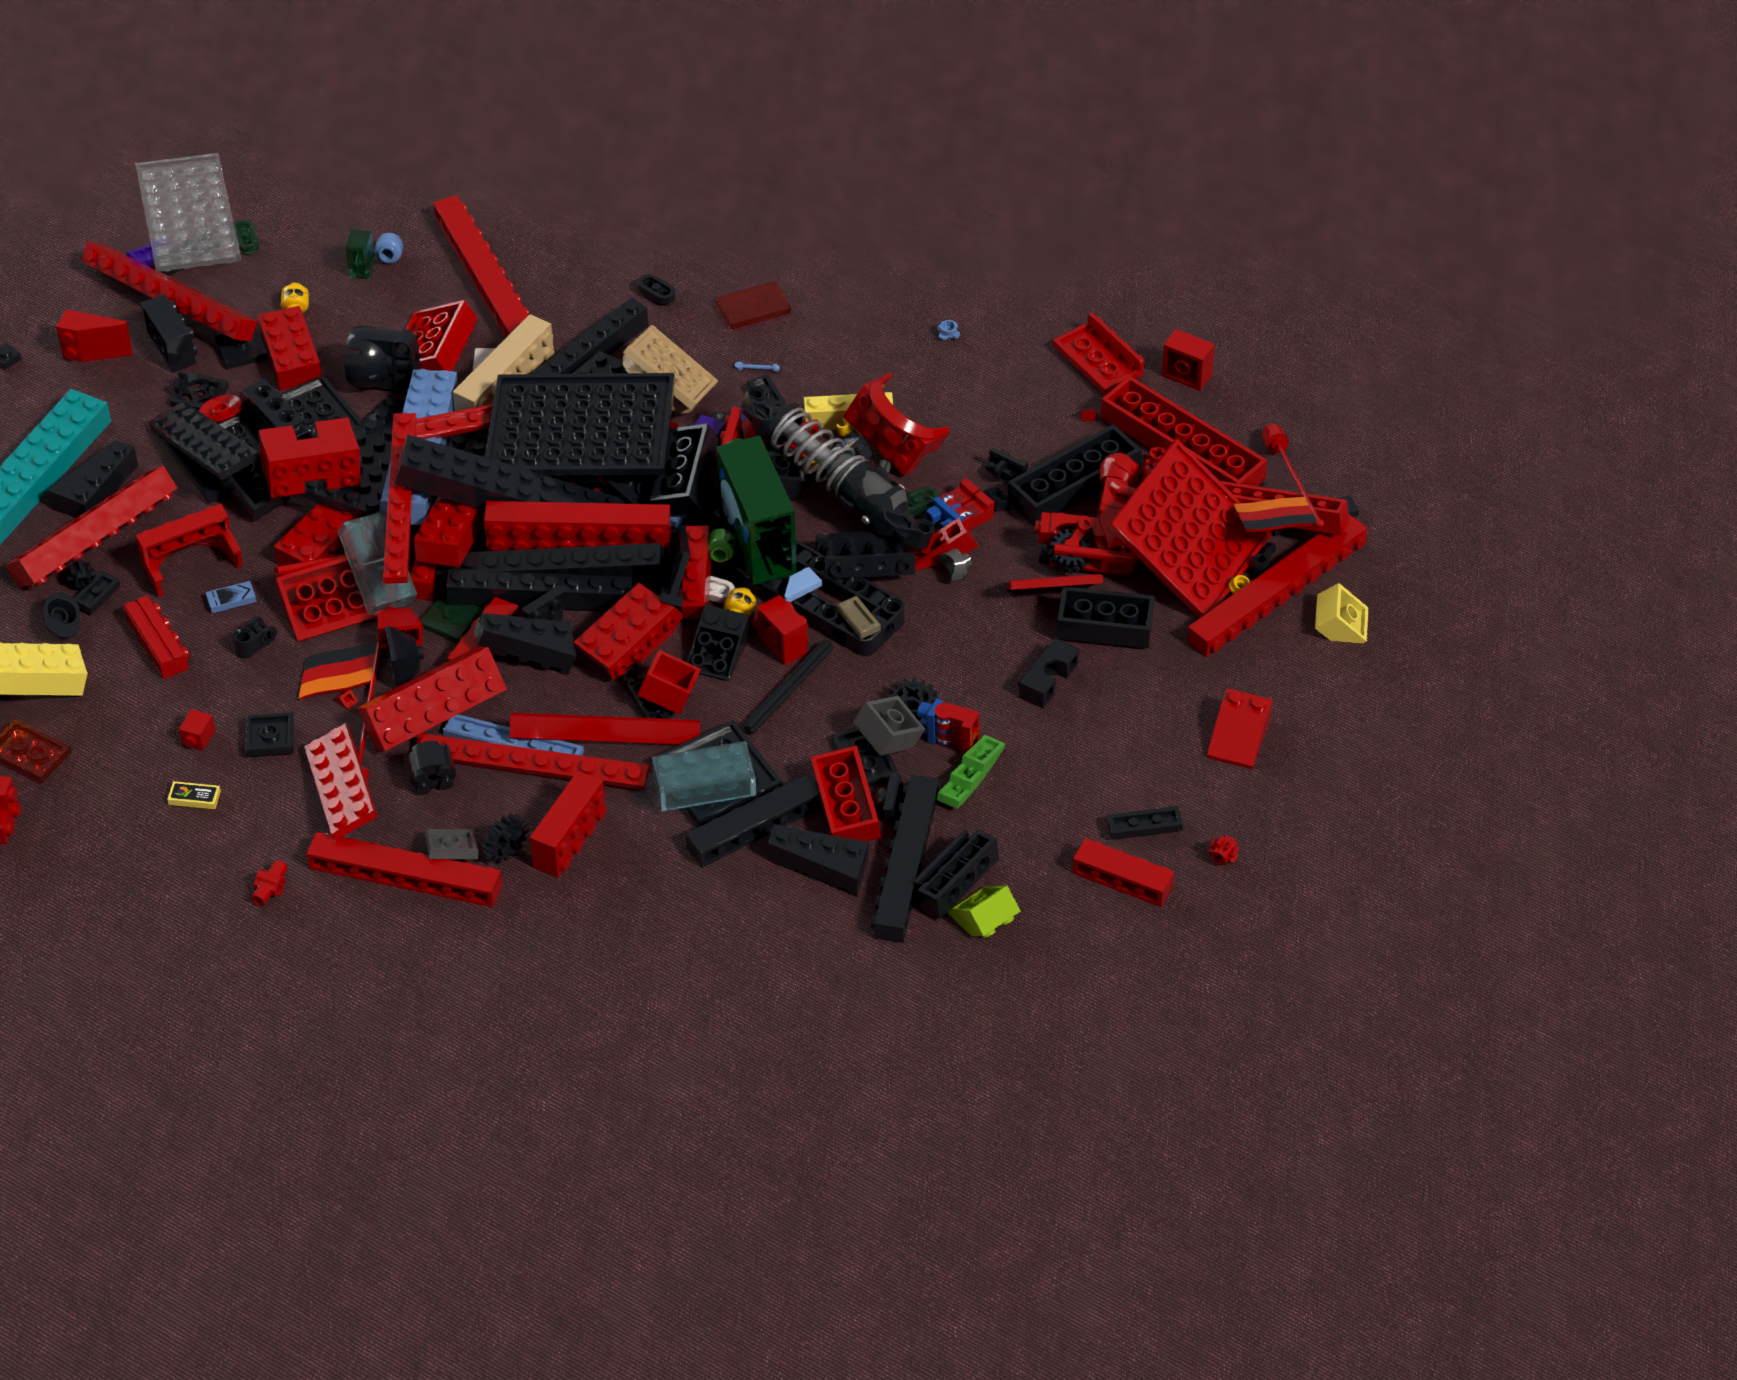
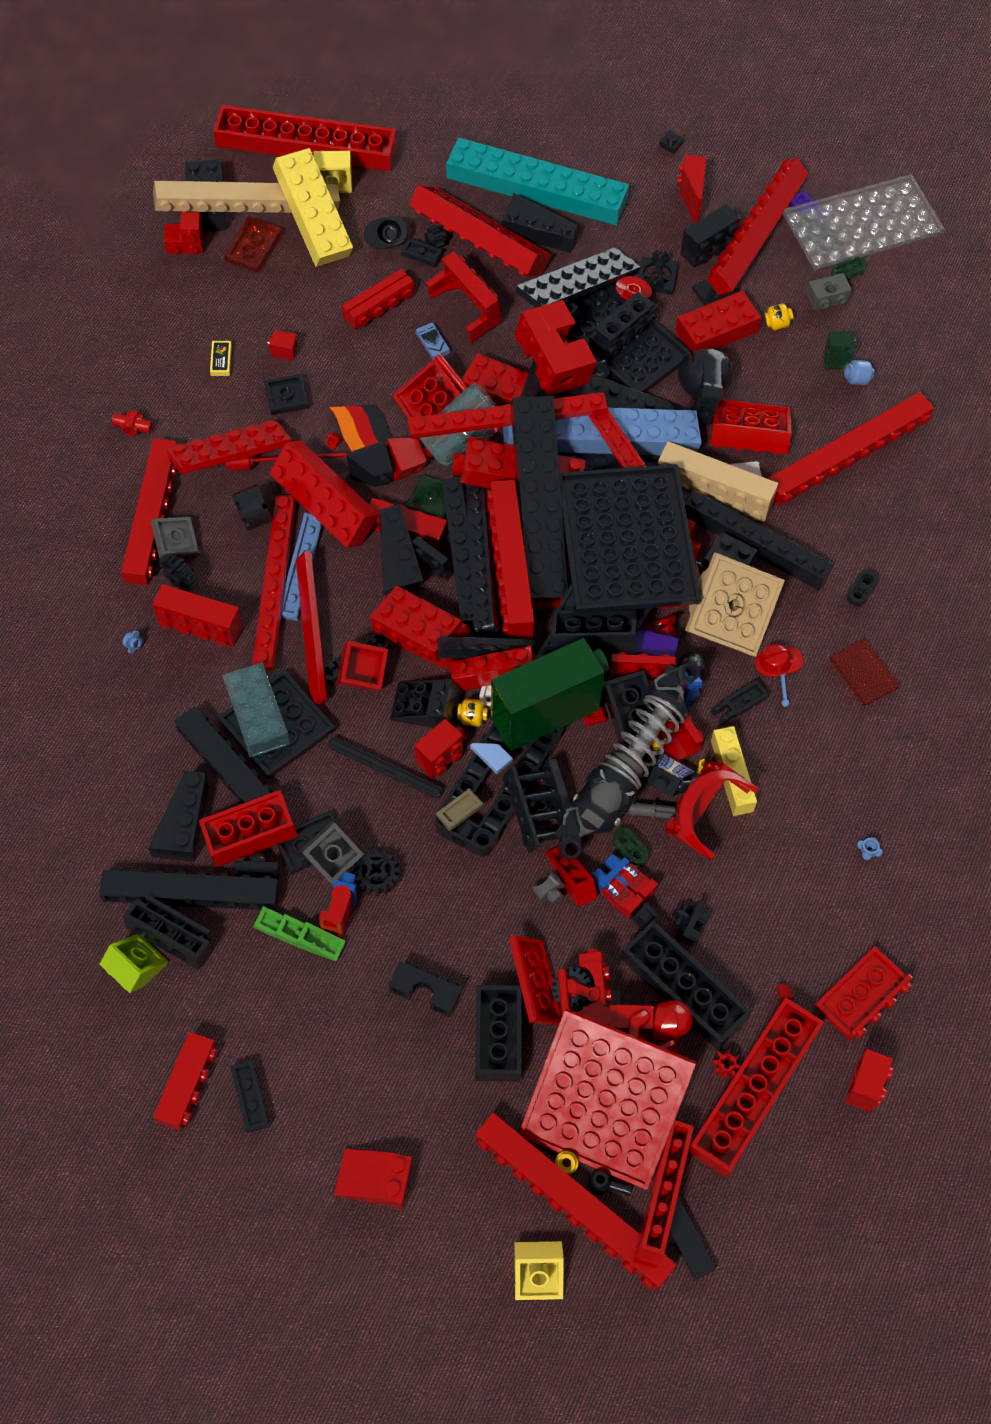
camera: 80 degrees right, 15 degrees up
(252, 637) = (387, 362): black piece -> none
(273, 255) = (829, 291): none -> dark grey brick
(582, 894) = (132, 641): none -> medium blue plate
(726, 366) = (778, 660): none -> red piece
(1223, 850) = (216, 1172): red gear -> none
(1278, 512) = (636, 1186): flag -> none

